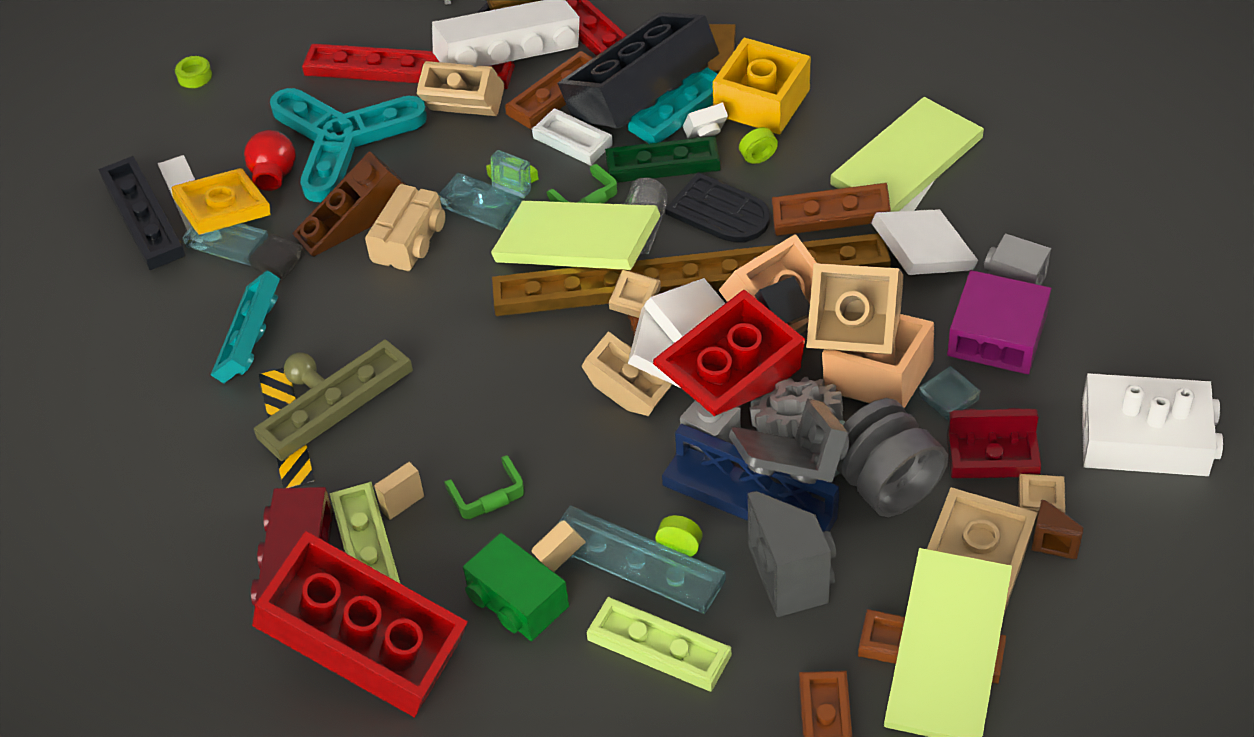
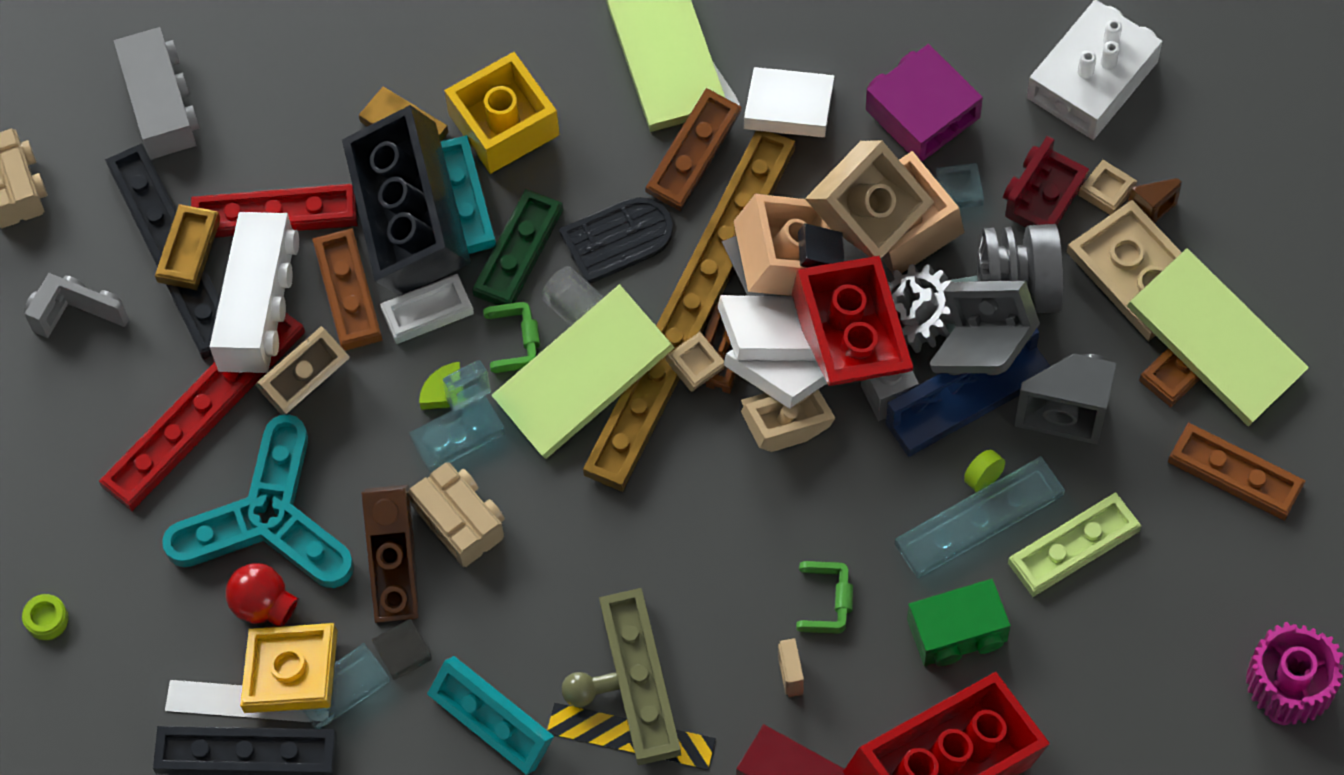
camera: 60 degrees left, 15 degrees up
(363, 528) = (818, 721): yellowish green tile -> none
(558, 545) = (946, 566): tan tile -> none
(705, 121) = (506, 186): white plate -> none
(758, 145) = (570, 160): lime tile -> none
(1018, 260) = (867, 51): light grey brick -> none

